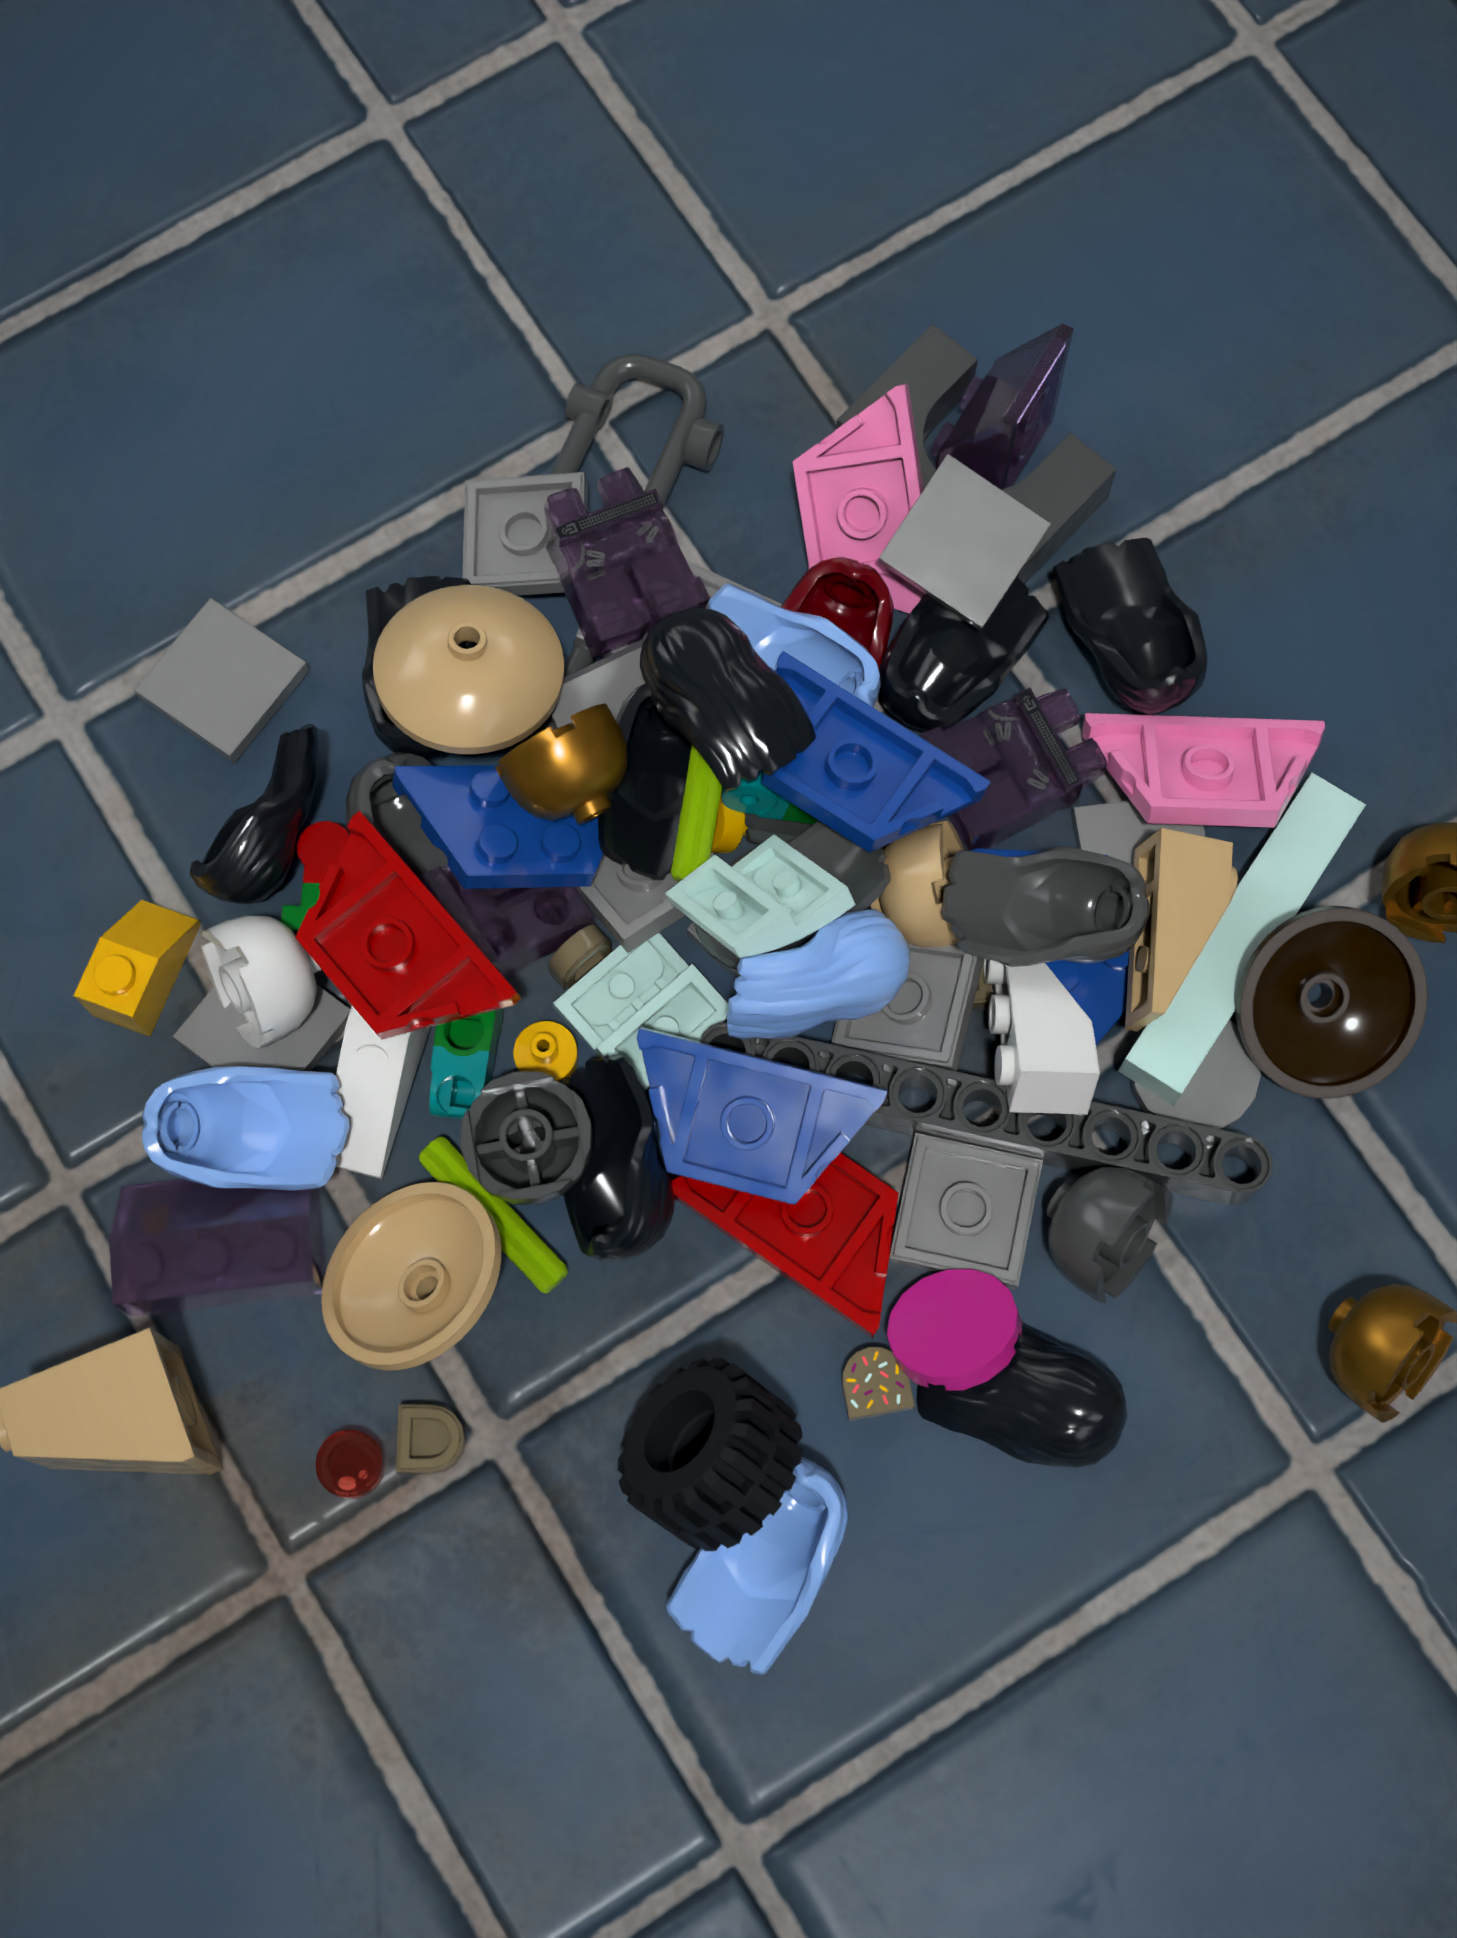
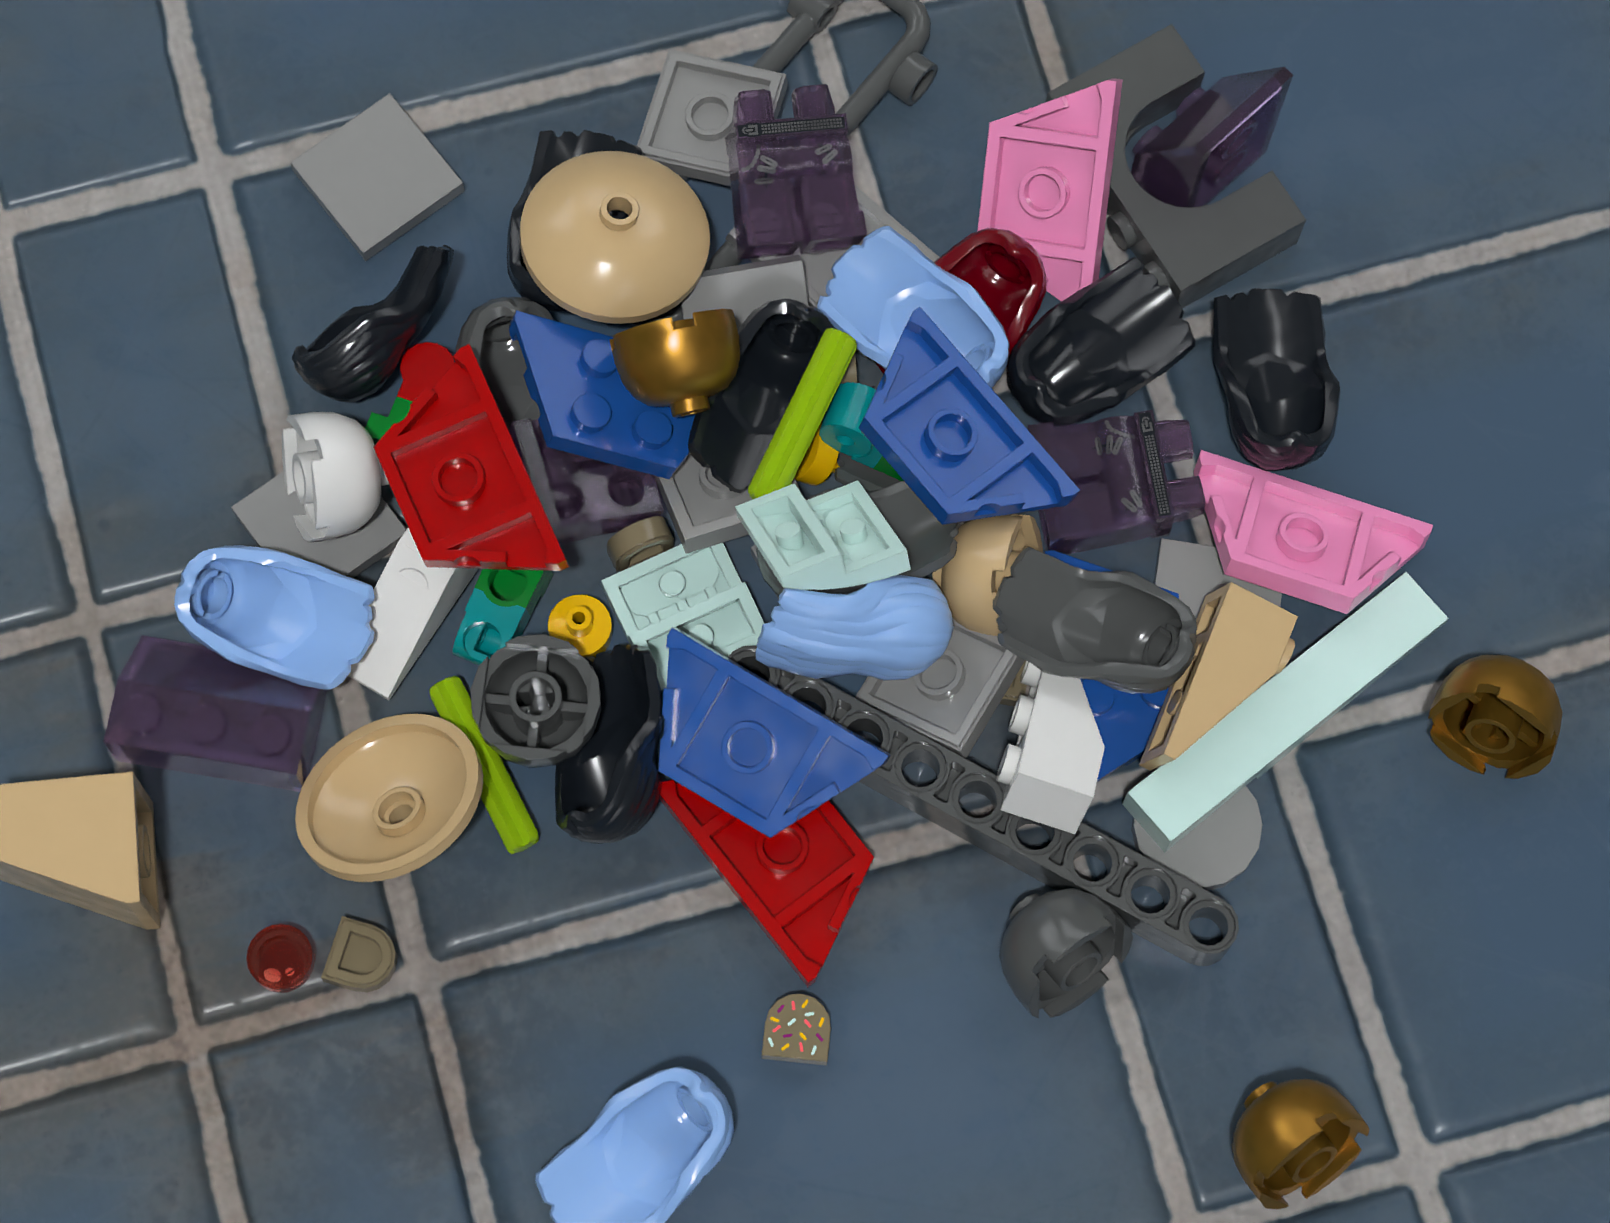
camera: 10 degrees right, 0 degrees up
(136, 966) = (216, 430): yellow slope -> none
(710, 1454) = (617, 1044): black tyre -> none
(723, 695) = (846, 334): black hair -> none
(954, 1329) = (885, 999): dark pink tile -> none
(963, 542) = (1130, 249): light grey tile -> none
(965, 1209) = (934, 894): light grey tile -> none
(1038, 1409) = (931, 1078): black hair -> none
(1358, 1026) = (1369, 829): dark brown dish -> none

